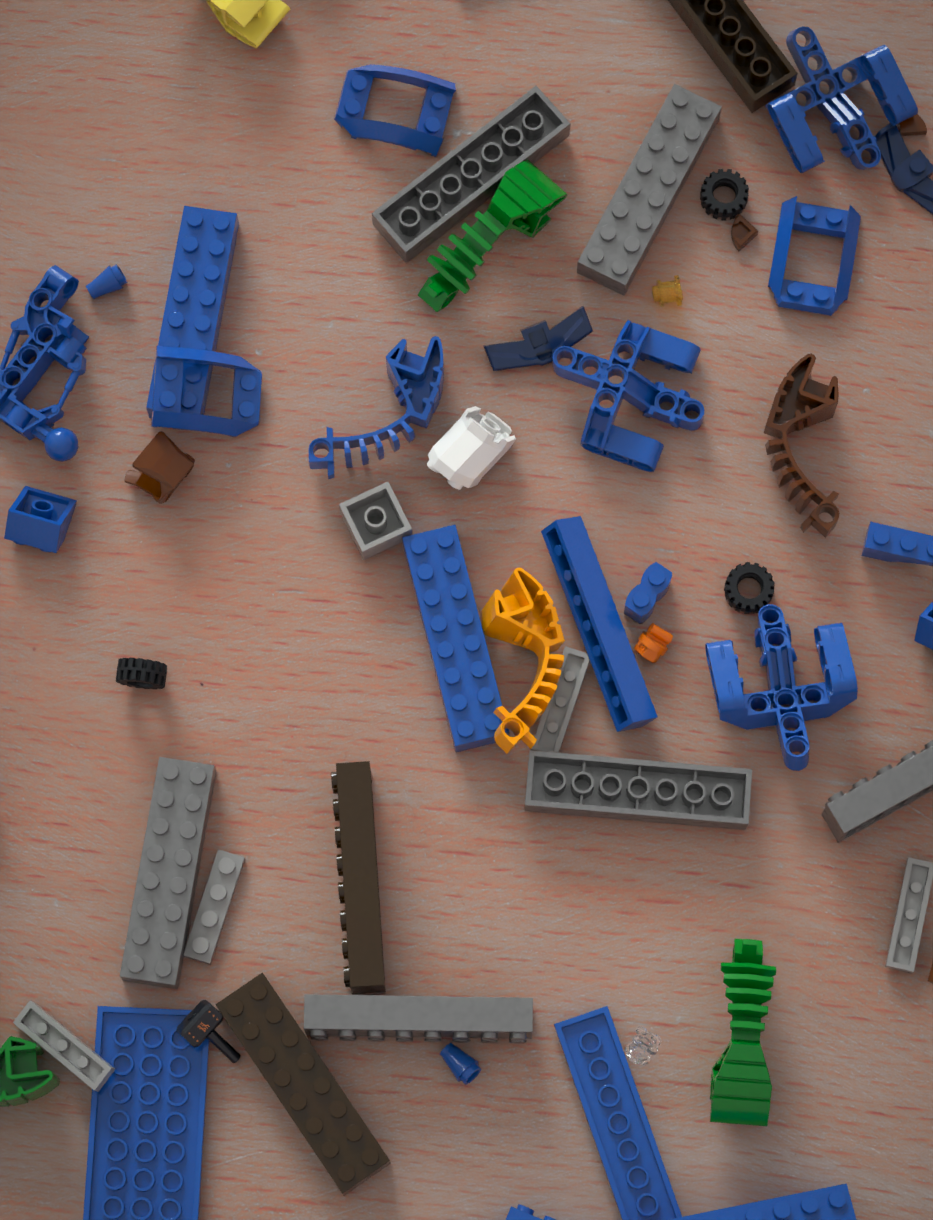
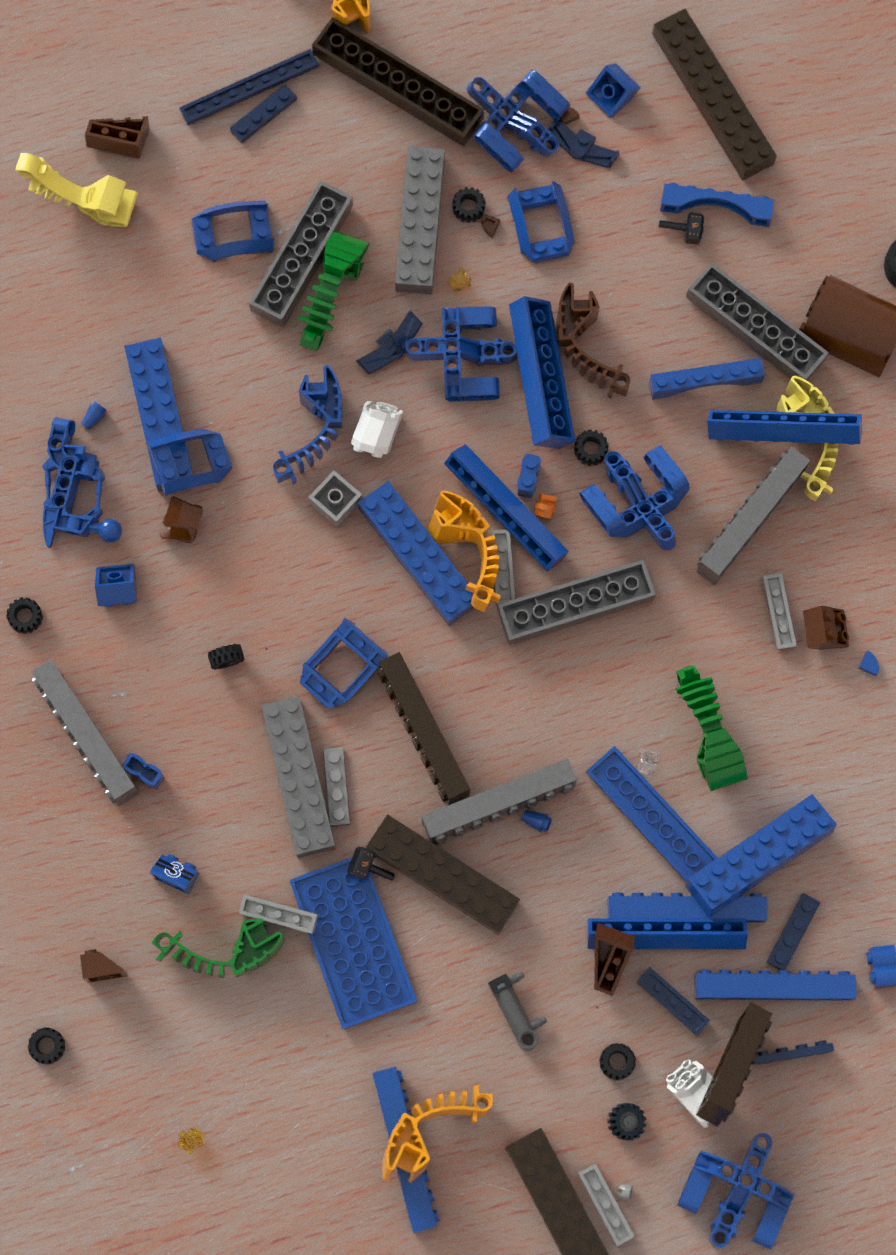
camera: 25 degrees left, 0 degrees up
(324, 727) = (361, 645): none -> blue wedge
(723, 461) = (541, 372): none -> blue brick

